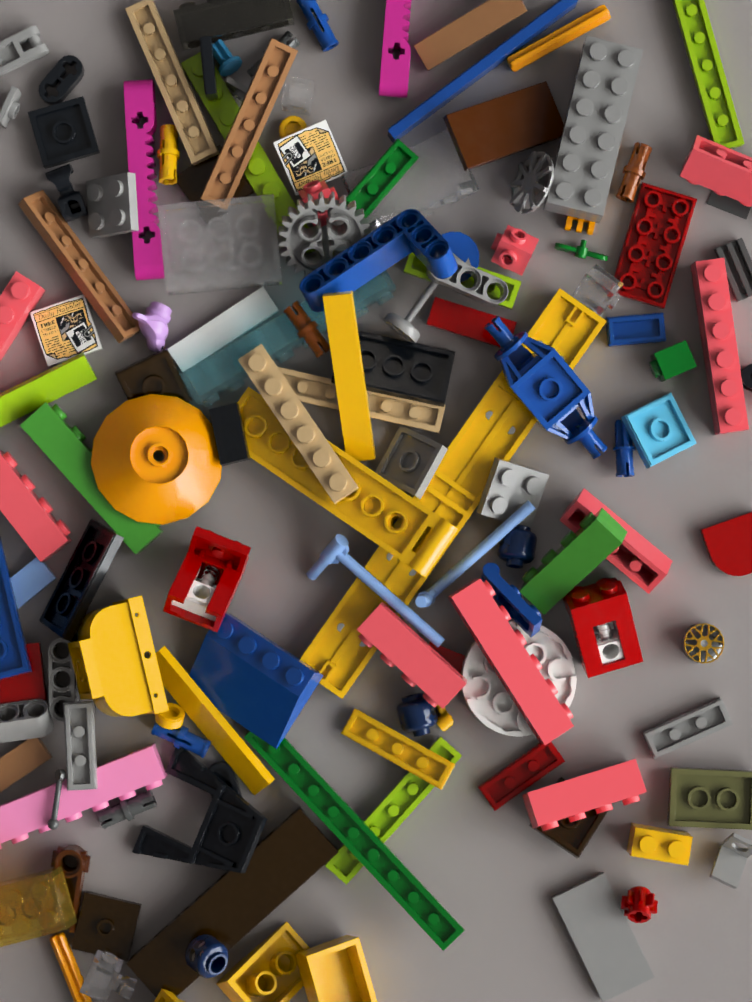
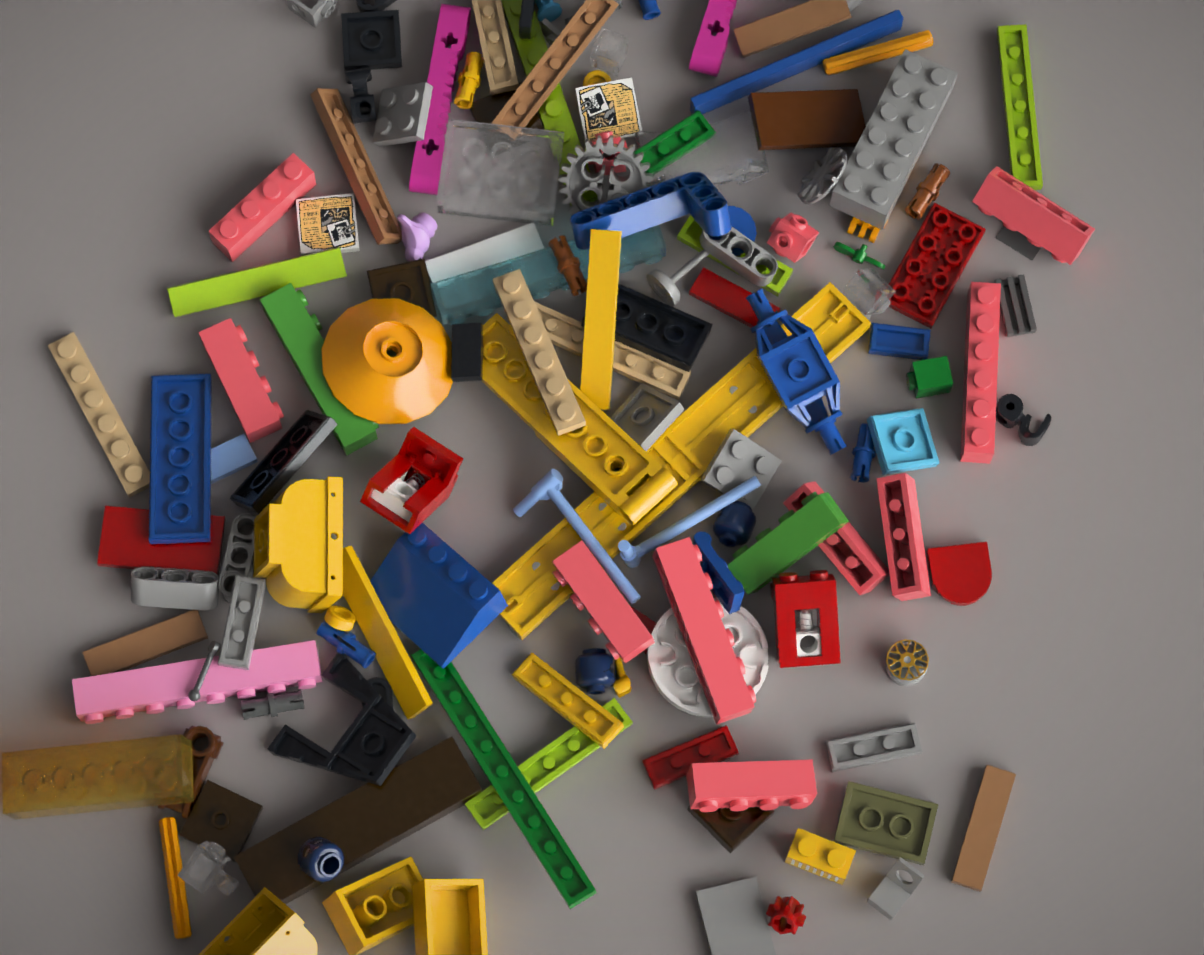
camera: 10 degrees right, 15 degrees down
(678, 526) = (903, 537): none -> coral brick

